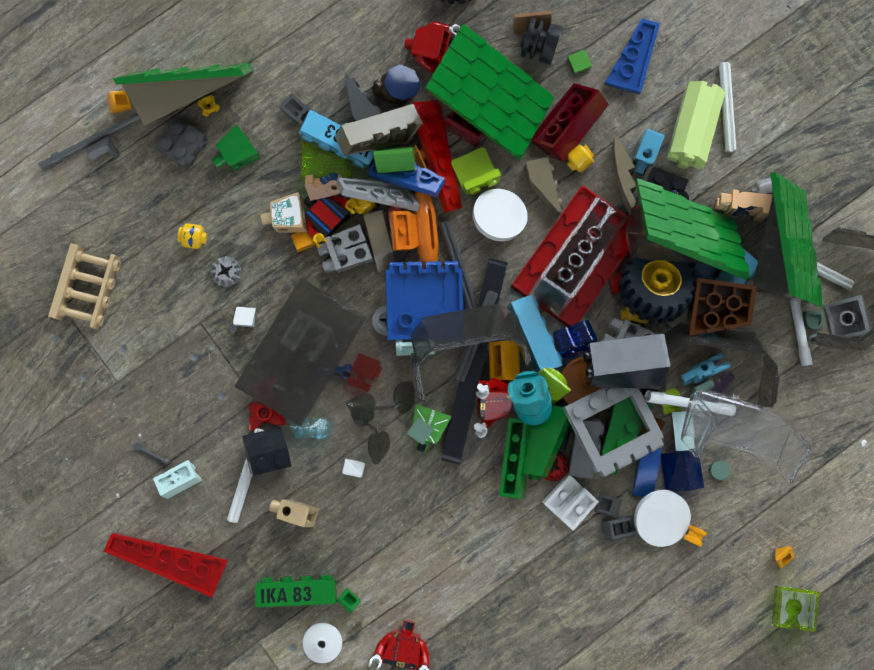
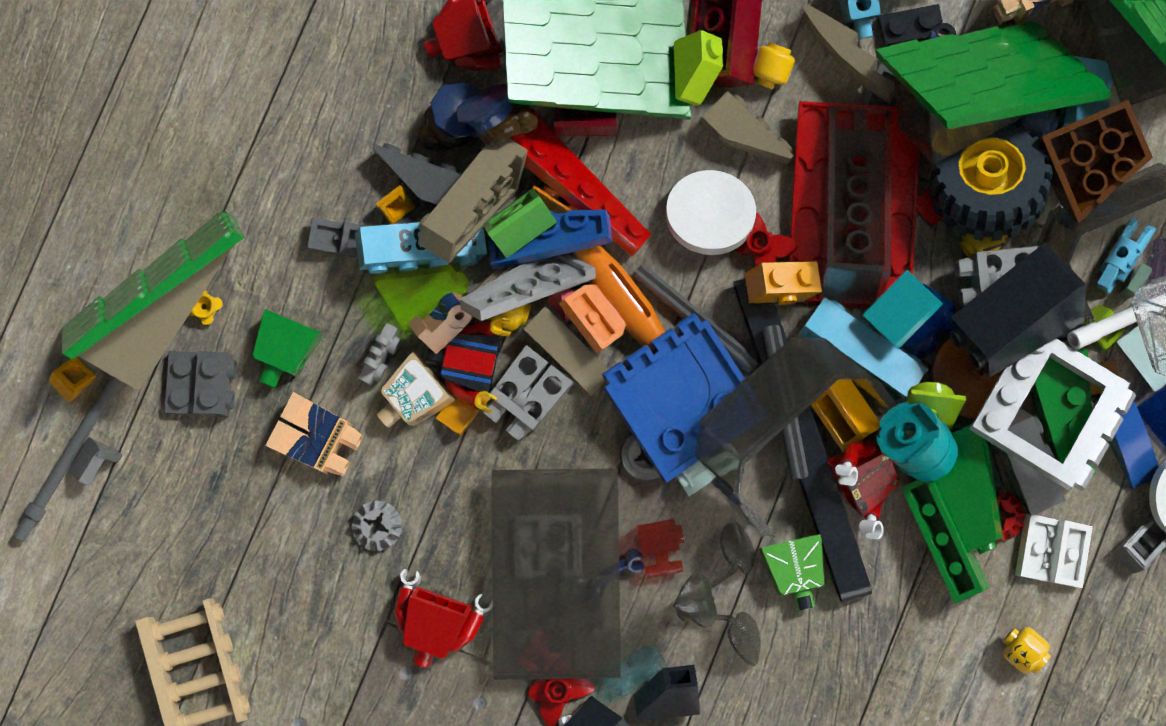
camera: 25 degrees left, 0 degrees up
(192, 236) = (299, 505): yellow head -> none
(222, 338) = (434, 622): none -> red torso
(227, 210) = (324, 439): none -> hips
(244, 317) = (443, 572): white slope -> none
(281, 183) = (385, 344): none -> light grey hinge
(320, 451) = (669, 694): none -> black slope
(338, 112) = (395, 205): none -> light orange slope
(353, 468) = (729, 690): white slope -> none
(415, 96) = (495, 118): none -> piece
(420, 431) = (791, 581): sand green tile -> none
(475, 171) = (638, 171): lime bracket -> none
(513, 272) = (783, 282): none -> light orange brick
(517, 250) = (765, 246): none -> red animal
(522, 544) = (1026, 650): none -> yellow head
(539, 133) = (696, 65): none -> lime slope
(567, 324) = (902, 309): none -> teal slope
(608, 505) = (1108, 523): dark grey slope -> none

